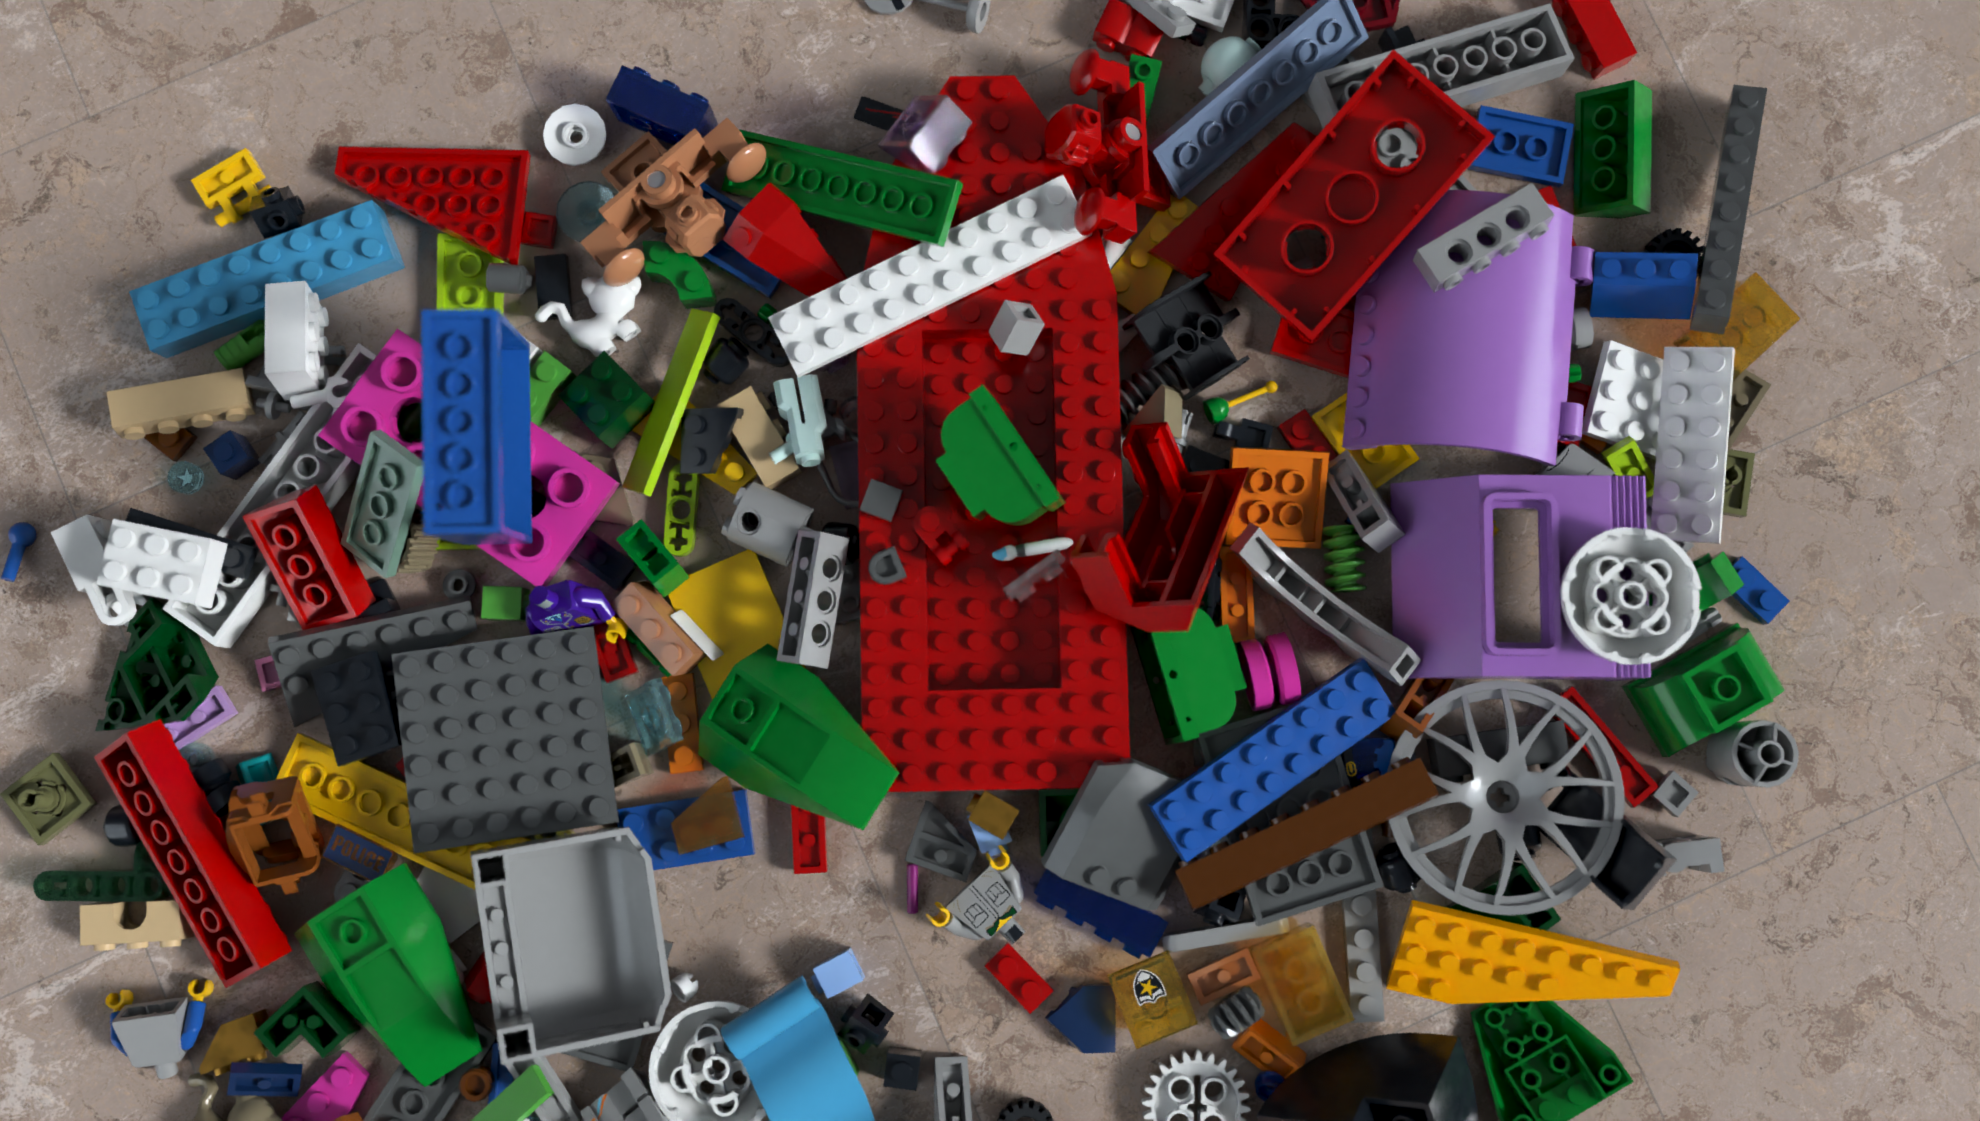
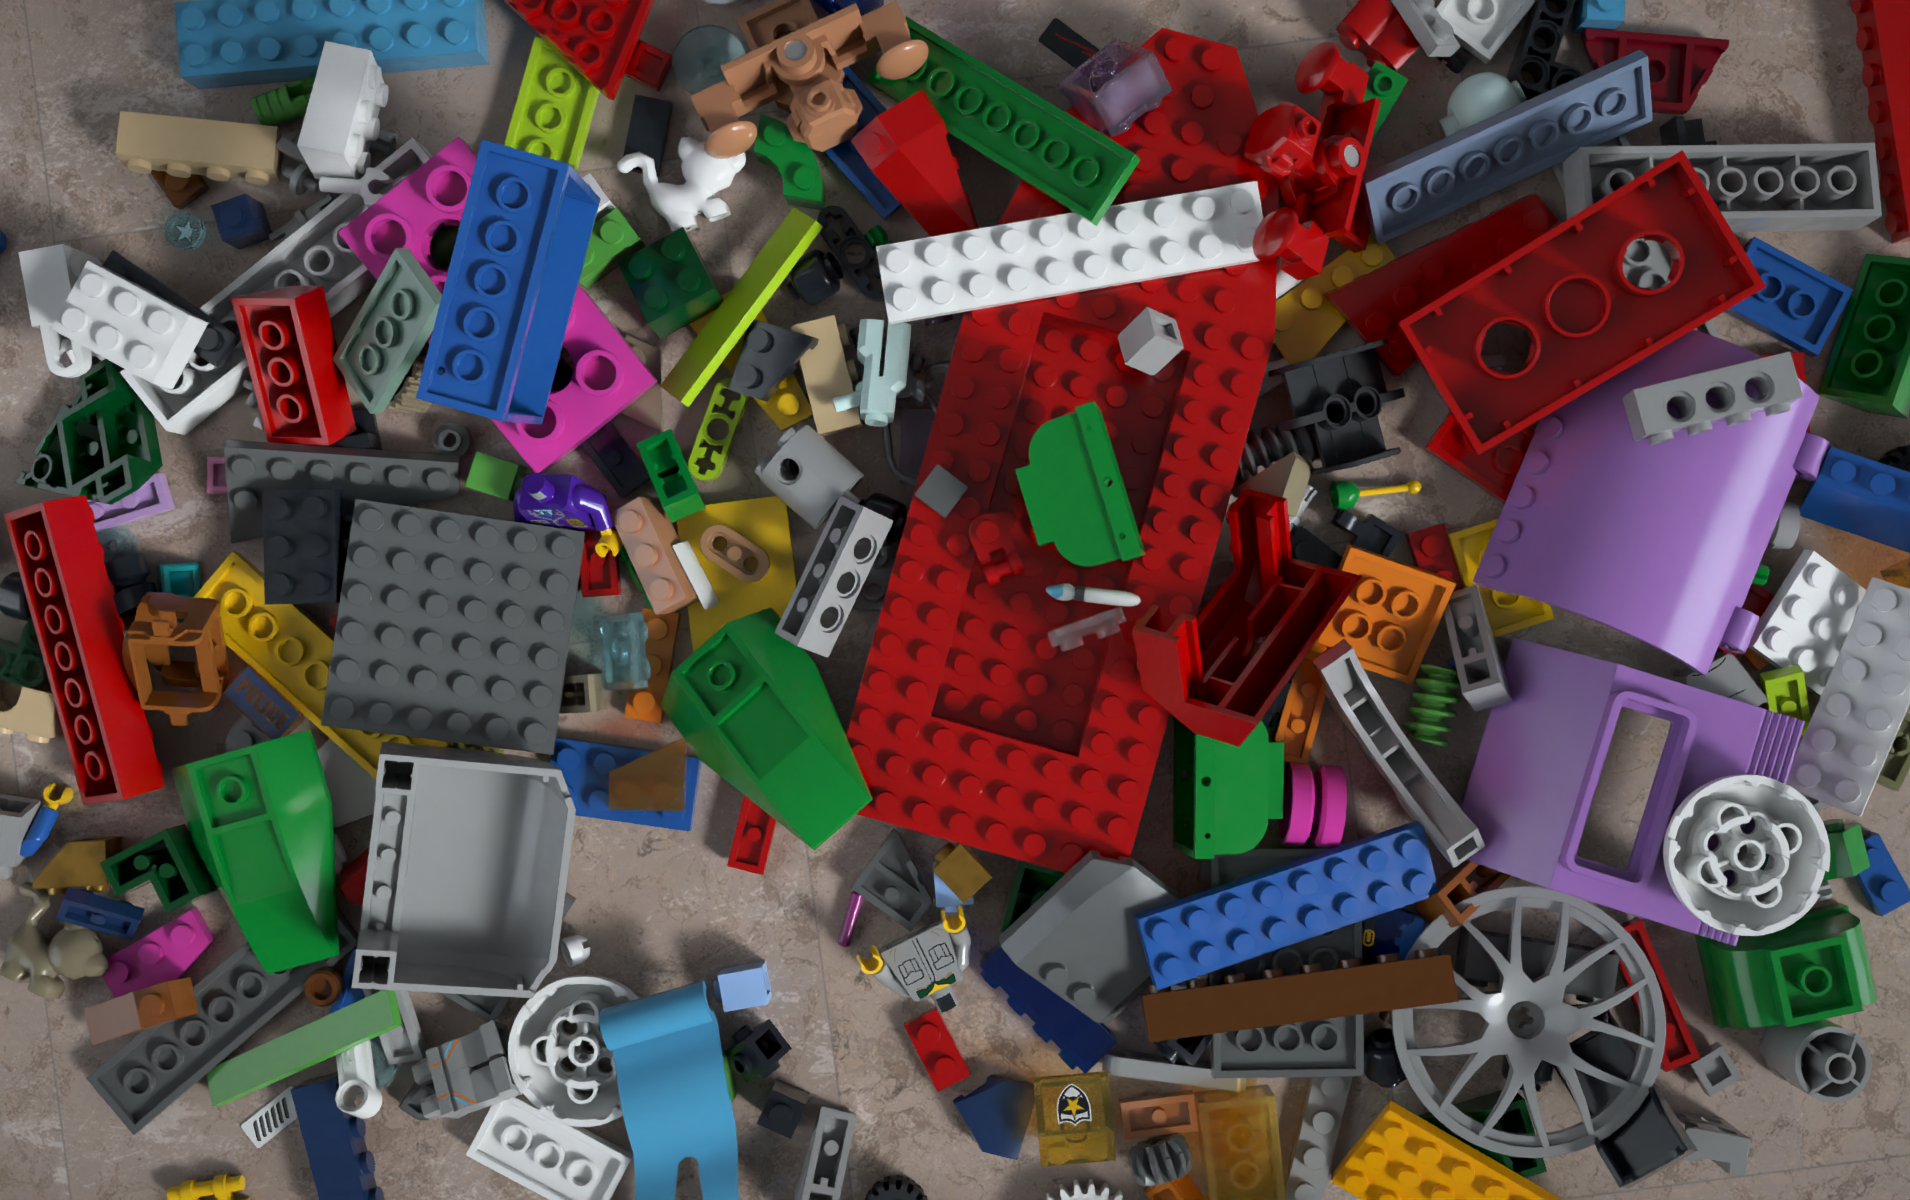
camera: 15 degrees right, 5 degrees up
(508, 278) = (598, 113): dark grey piece -> none
(725, 607) = (735, 554): none -> medium nougat plate
(886, 567) = (925, 567): dark grey tile -> none

